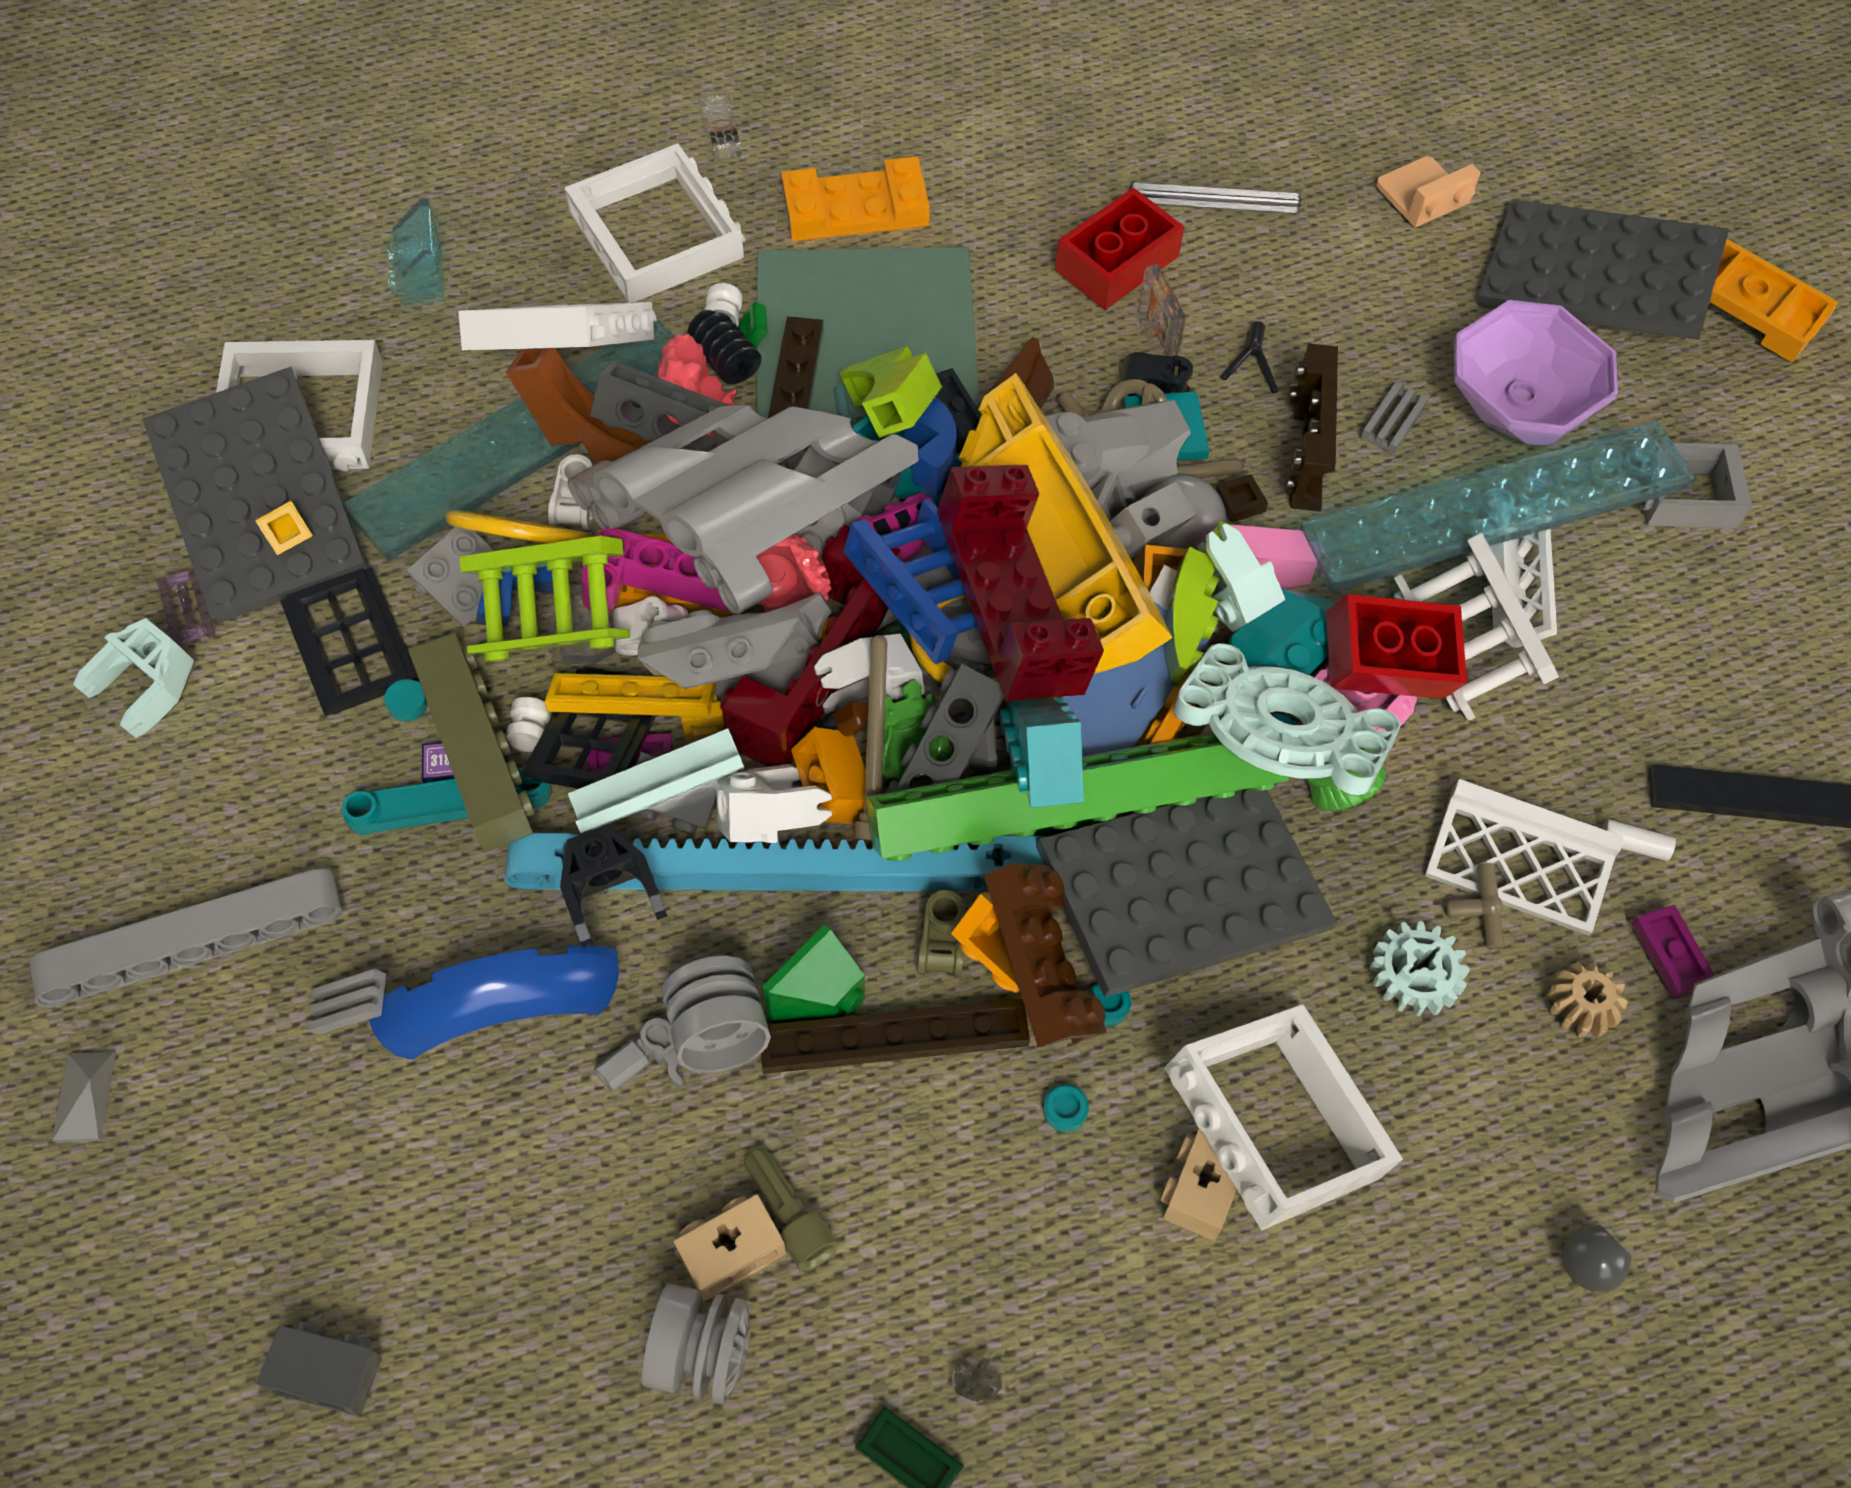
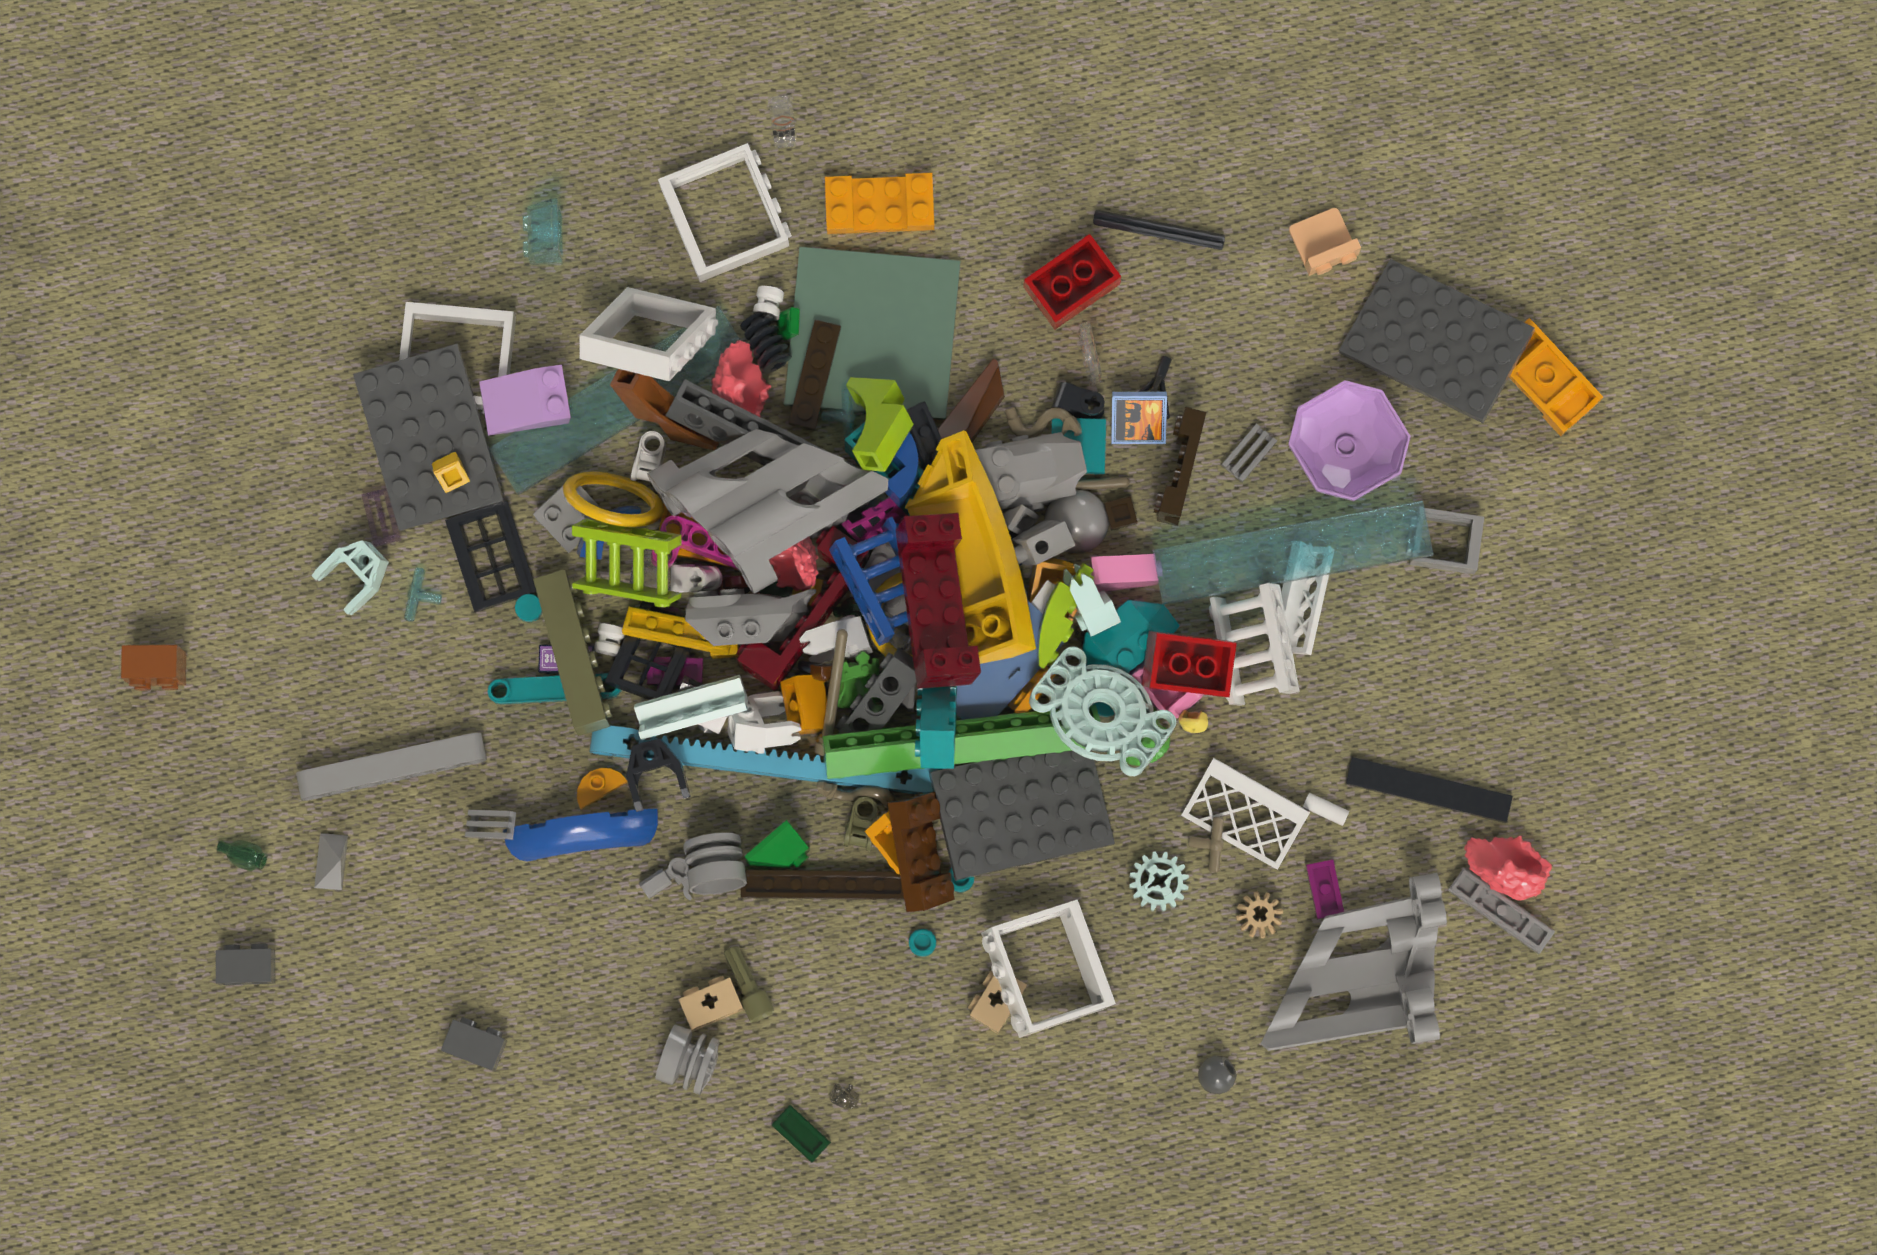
camera: 10 degrees right, 20 degrees up
(235, 698) = (415, 595): none -> clear light blue piece
(393, 430) = (525, 400): none -> lavender slope
(524, 927) = (597, 785): none -> light orange plate
(884, 893) = (831, 791): none -> dark tan animal
(1241, 382) = (1139, 417): none -> tile
(1413, 743) = (1193, 721): none -> light yellow piece

